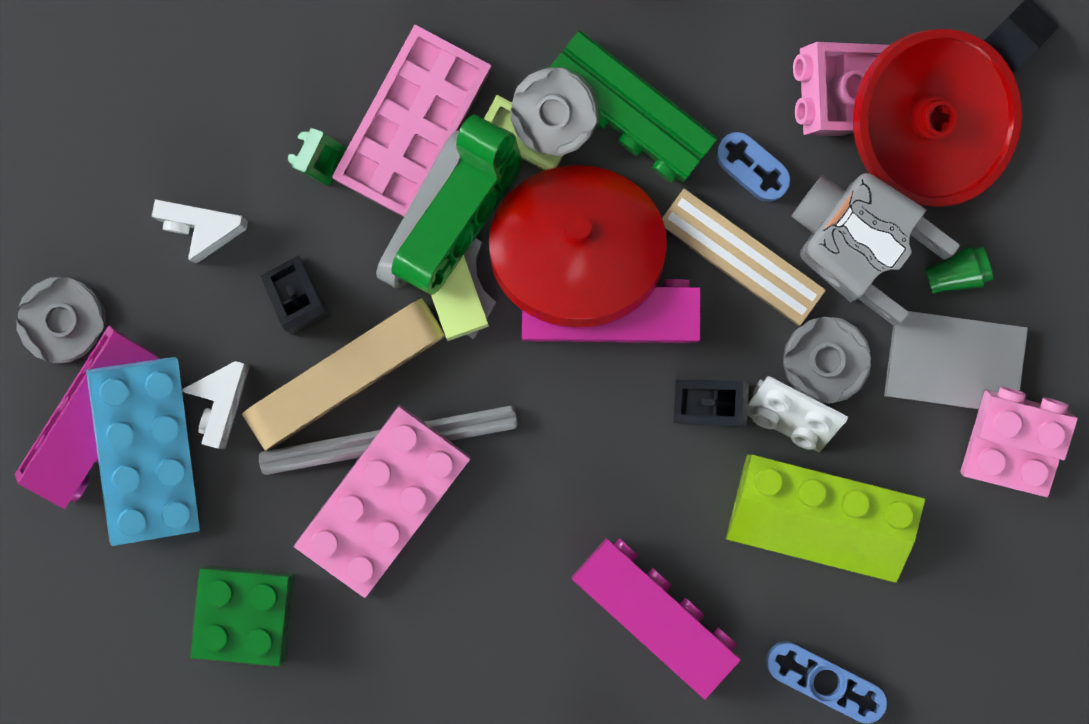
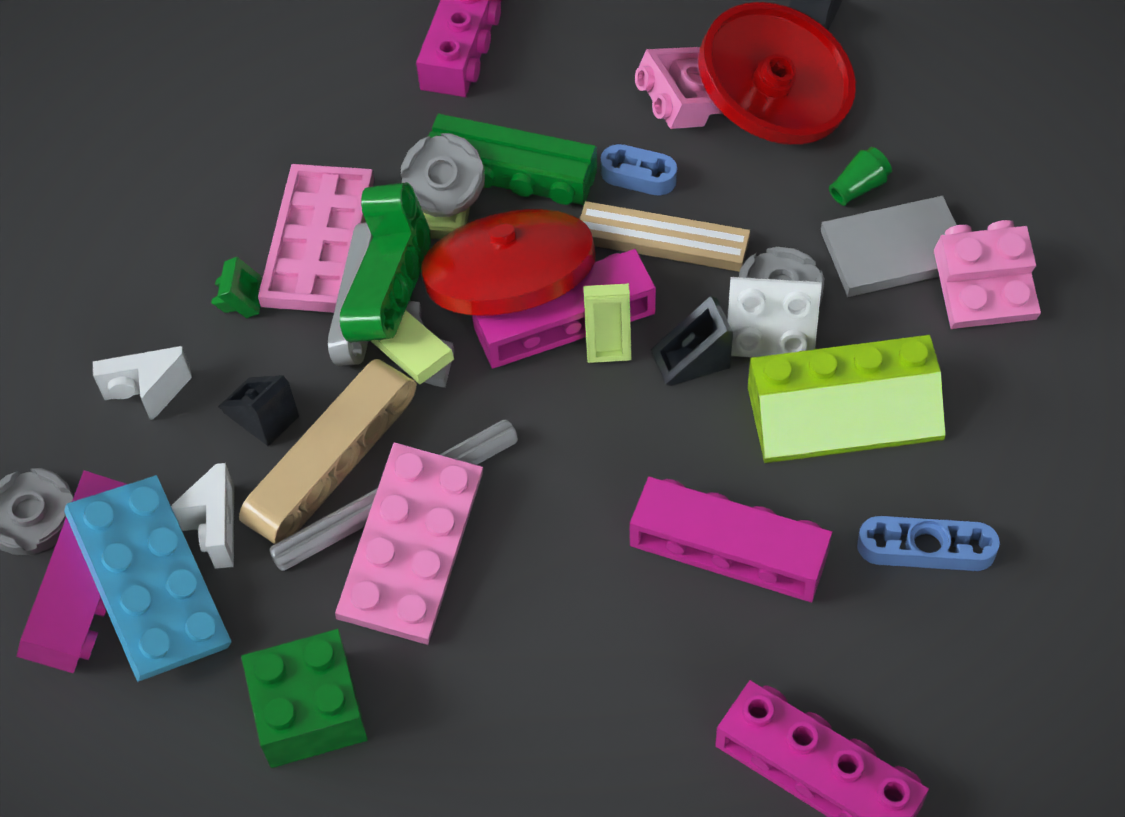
camera: 20 degrees left, 30 degrees down
(641, 357) = (607, 322): none -> yellowish green tile
(862, 235) = (756, 171): light grey piece -> none

